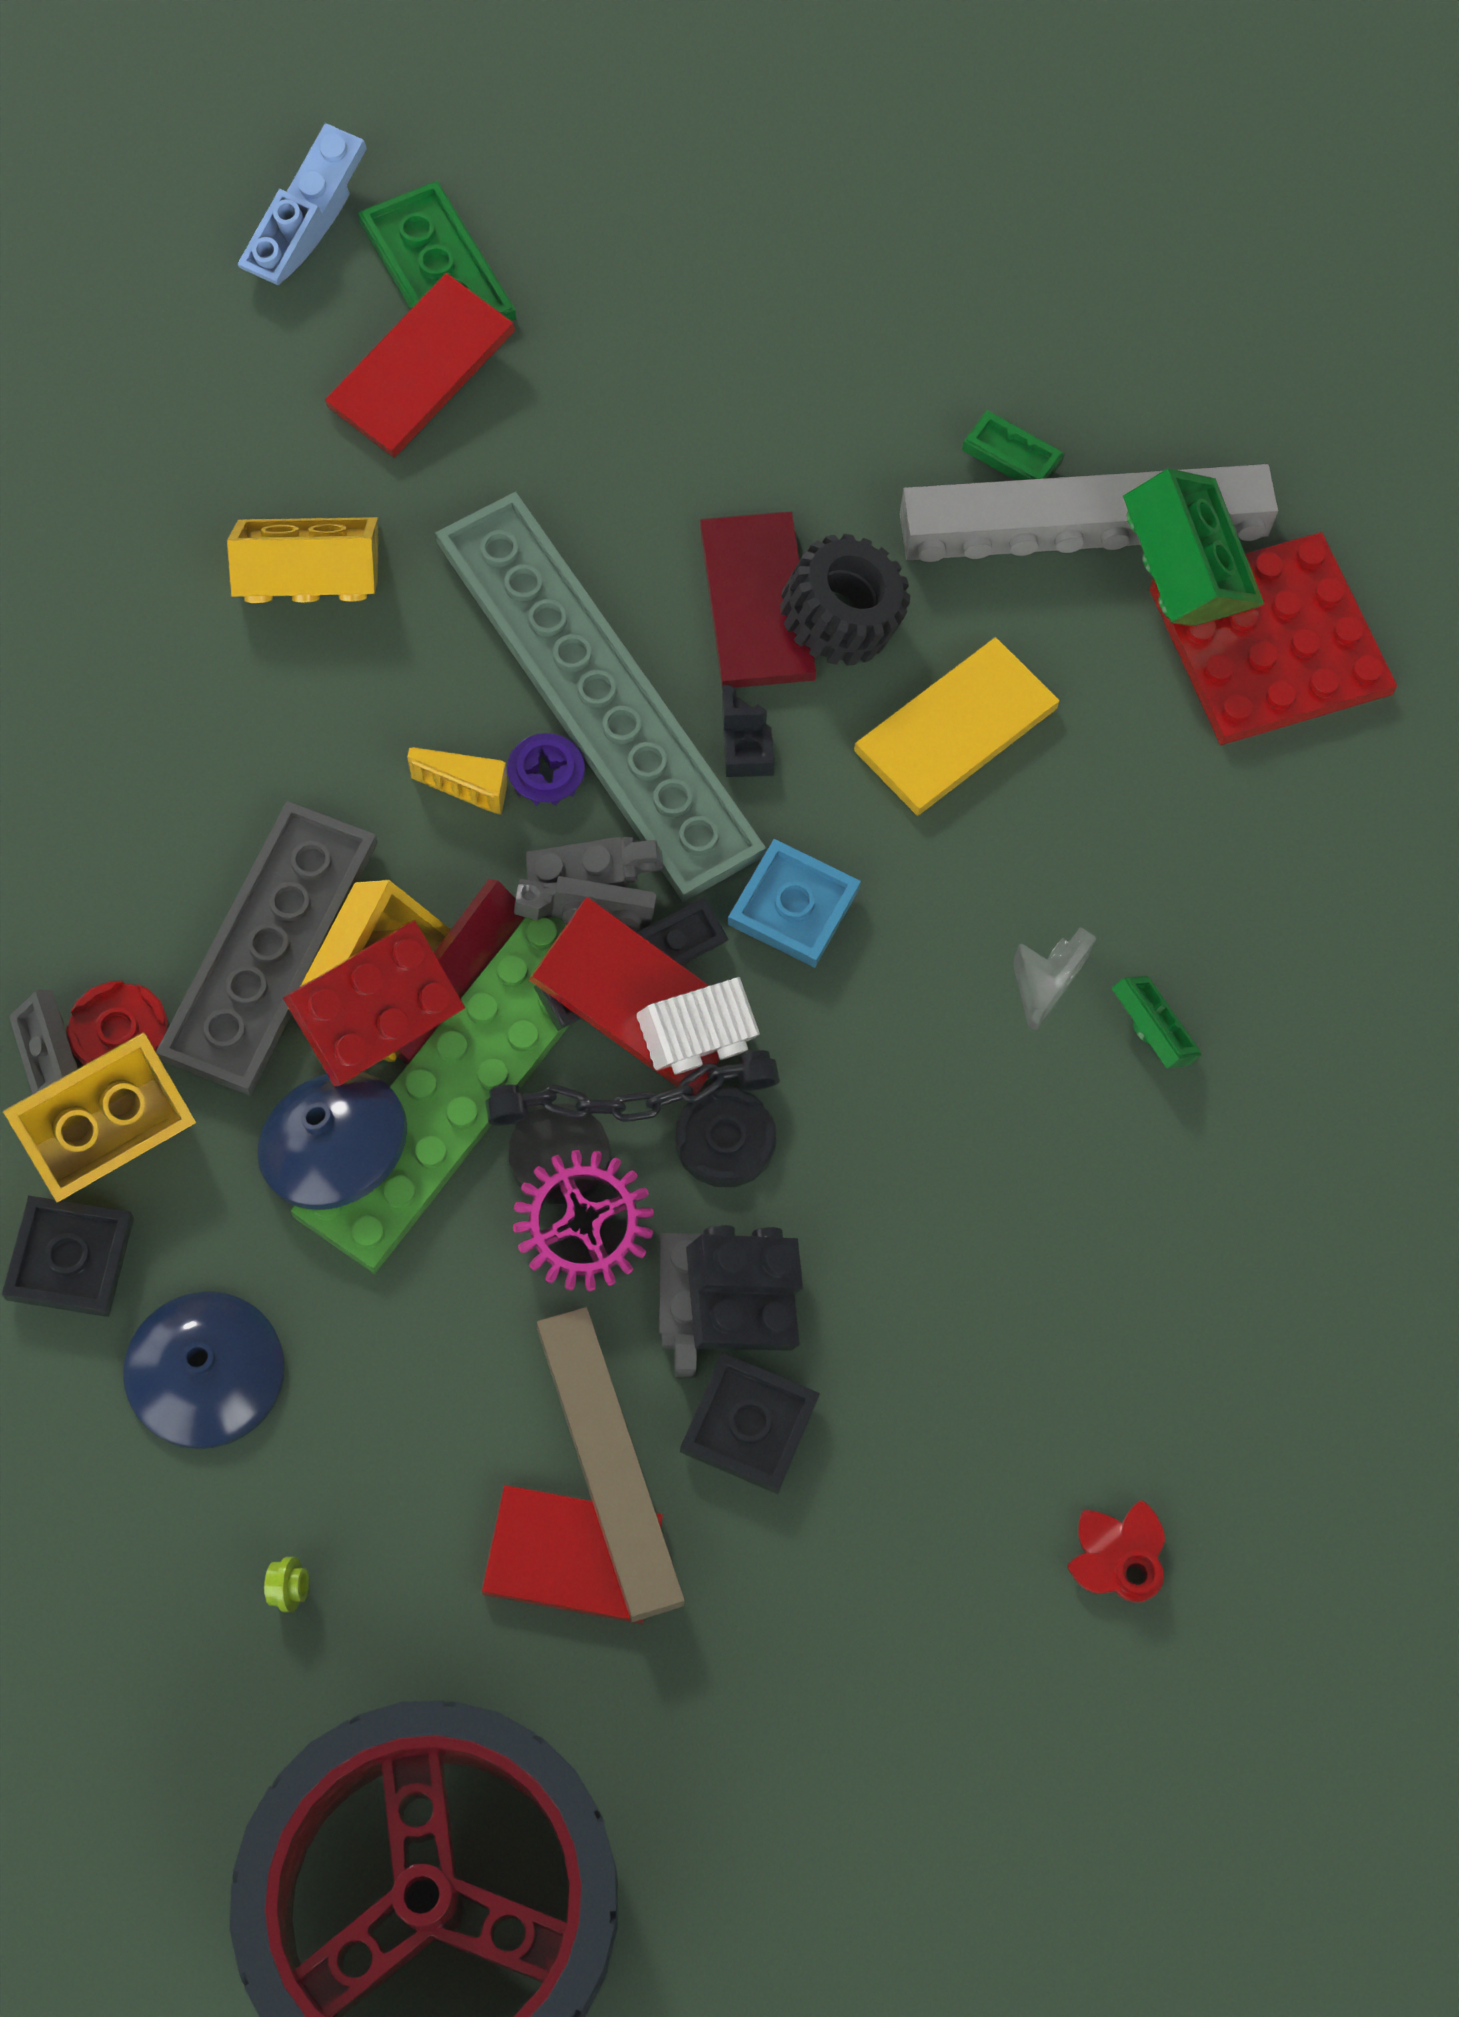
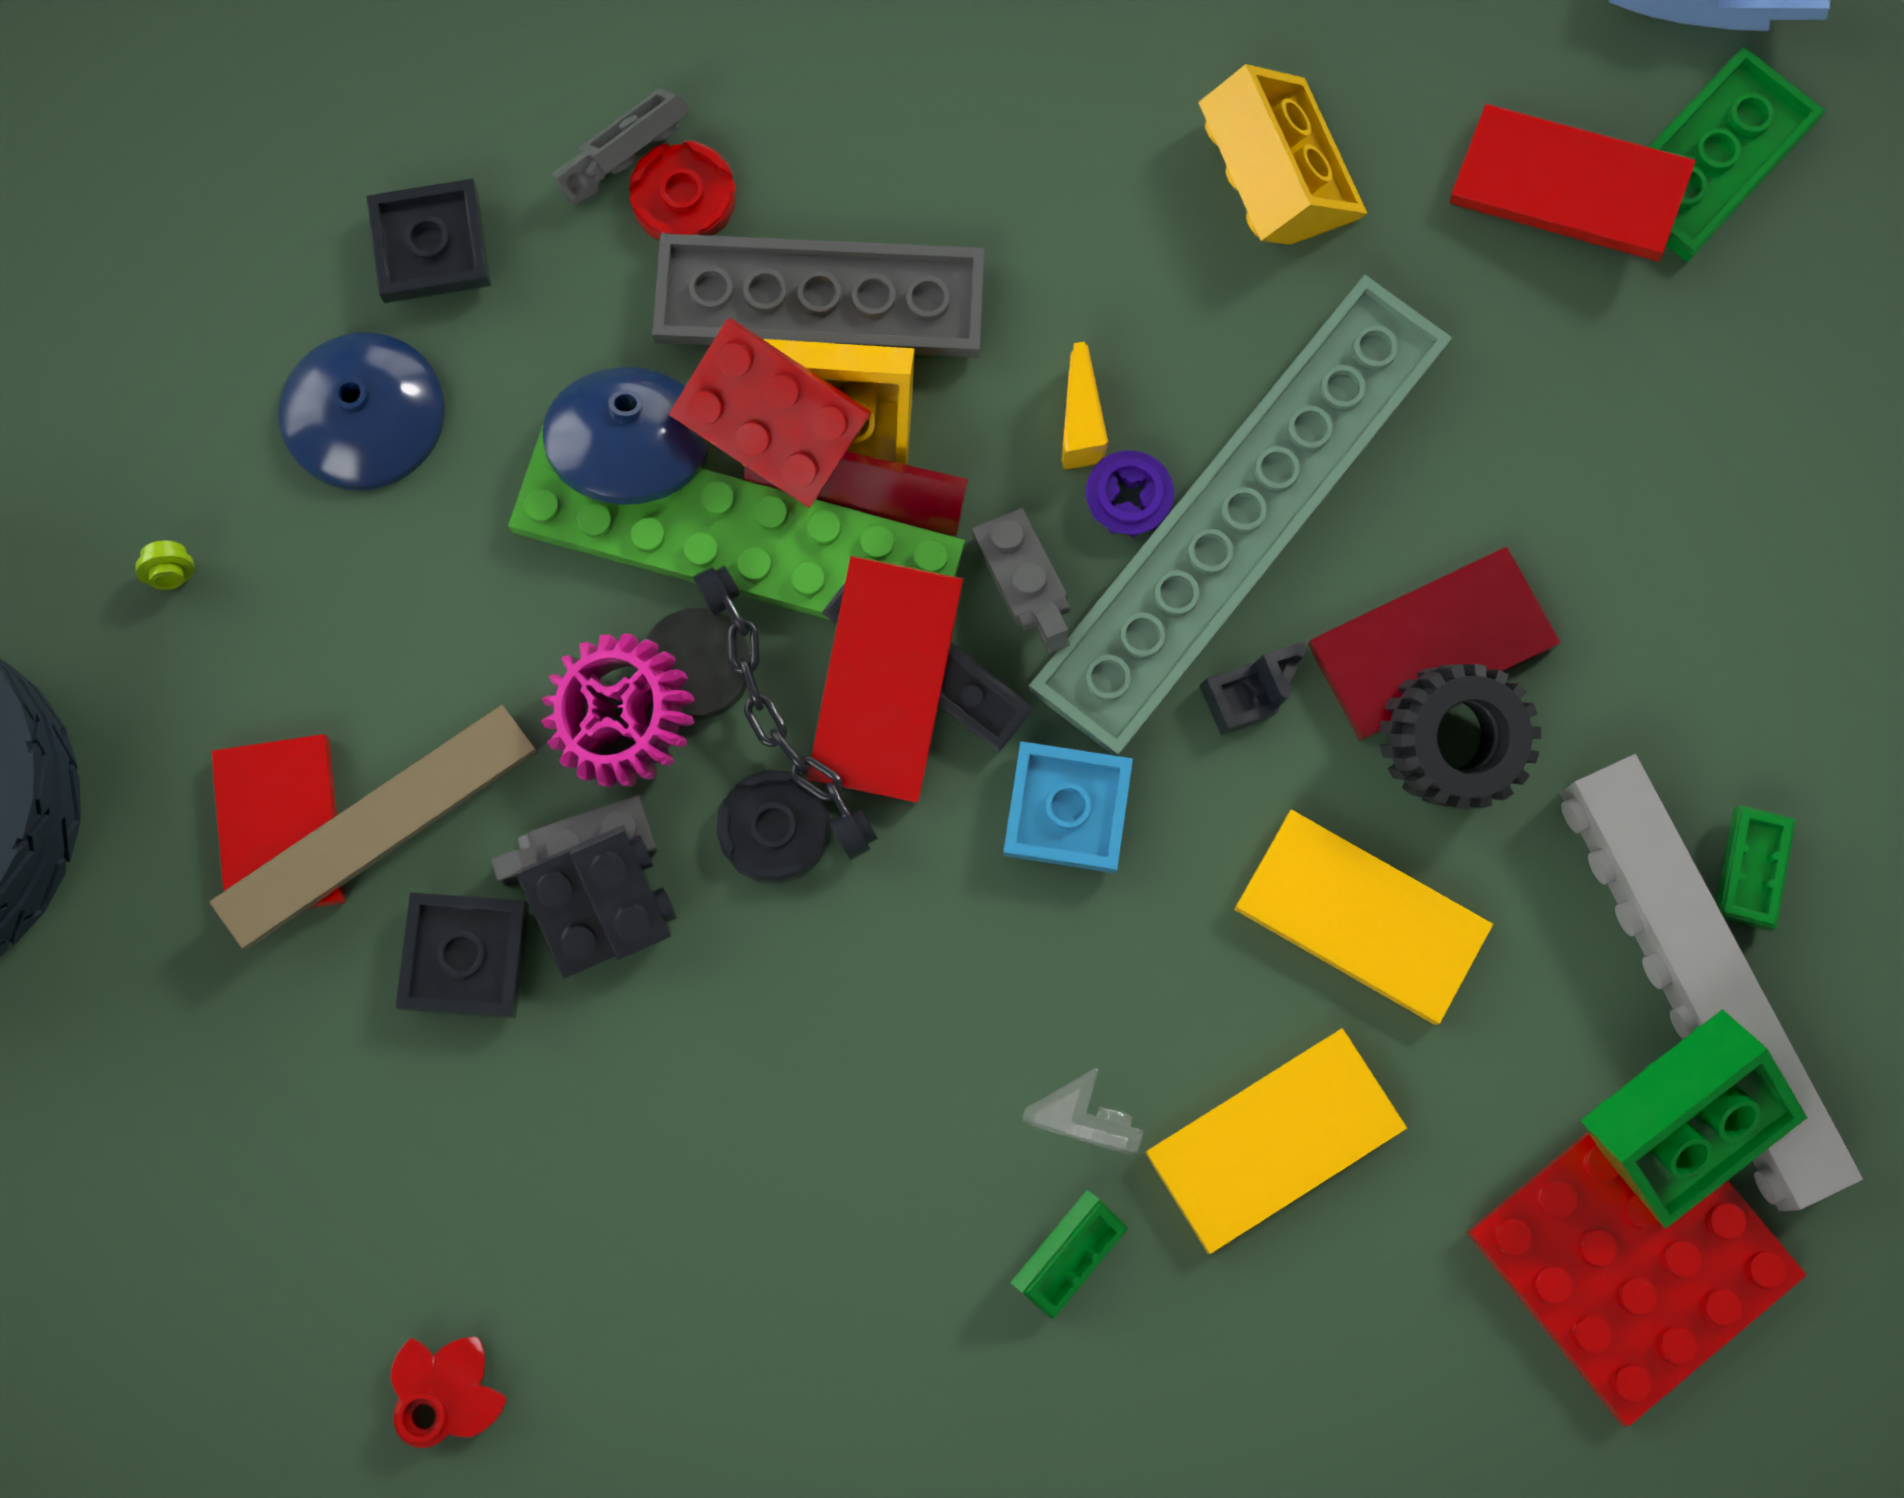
camera: 75 degrees right, 10 degrees up
(99, 1117) = (559, 206): yellow slope -> none
(563, 898) = (985, 627): dark grey hinge -> none
(698, 1025) = (867, 750): white brick -> none
(1111, 848) = (1275, 1141): none -> yellow tile

